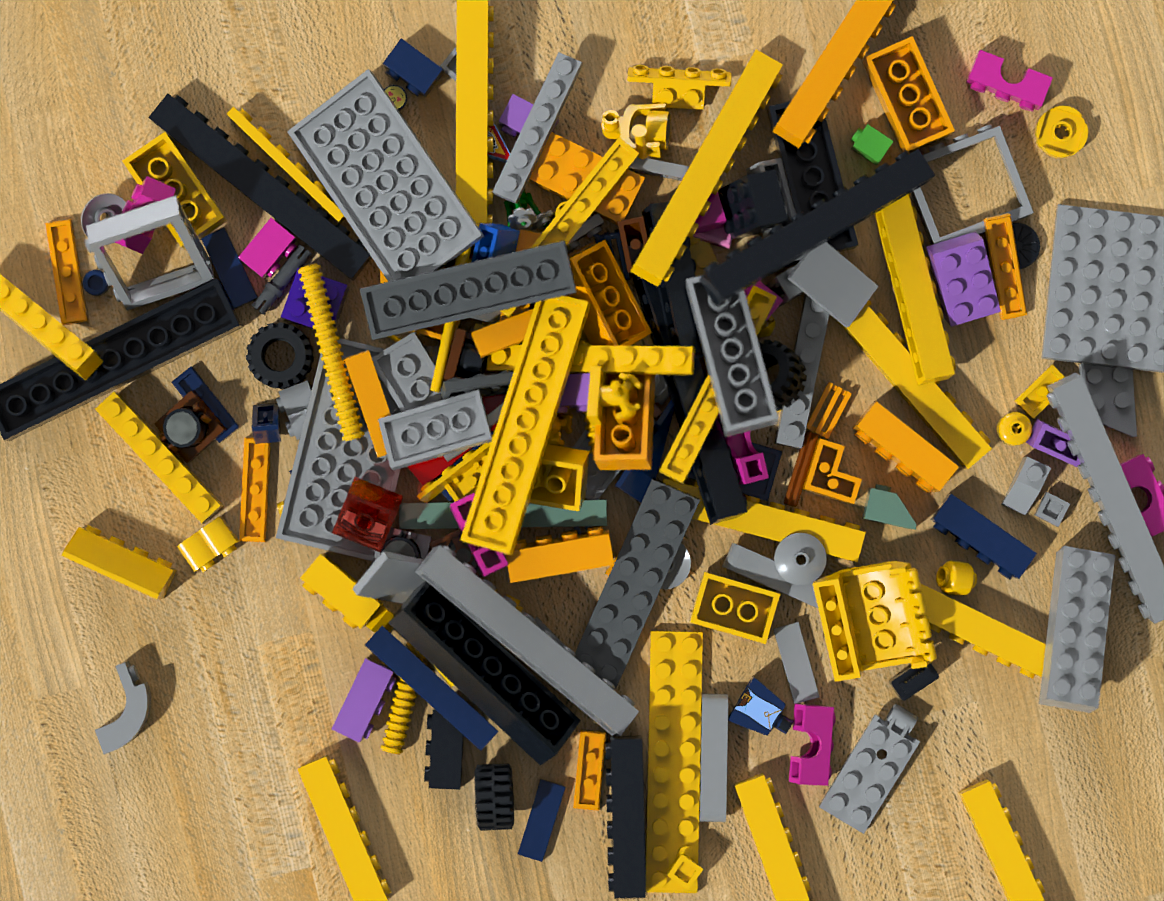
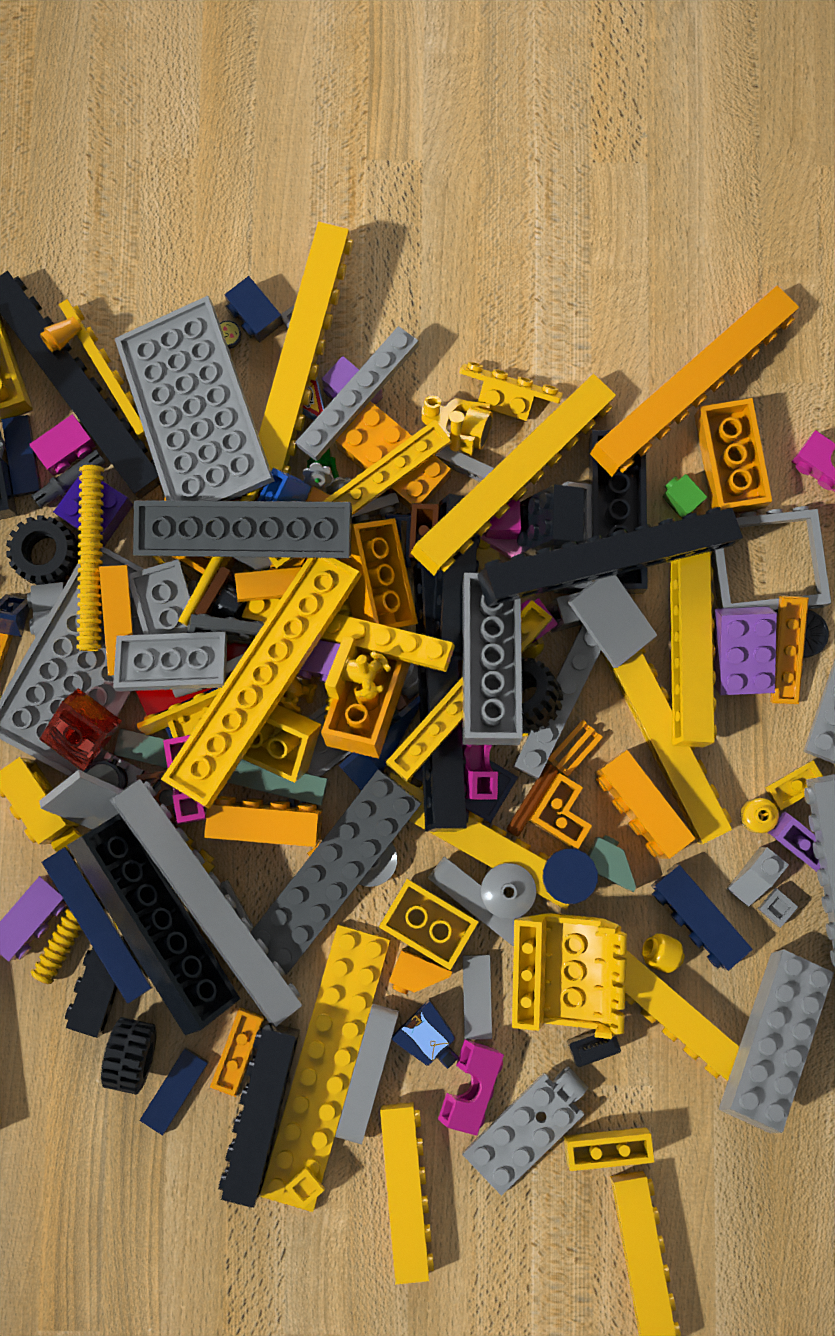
camera: 15 degrees right, 5 degrees down
(238, 145) = (59, 334): none -> light orange cone
(734, 656) = (416, 973): none -> light orange slope
(853, 530) = (570, 876): none -> dark blue tile
(950, 766) = (608, 1149): none -> yellow brick

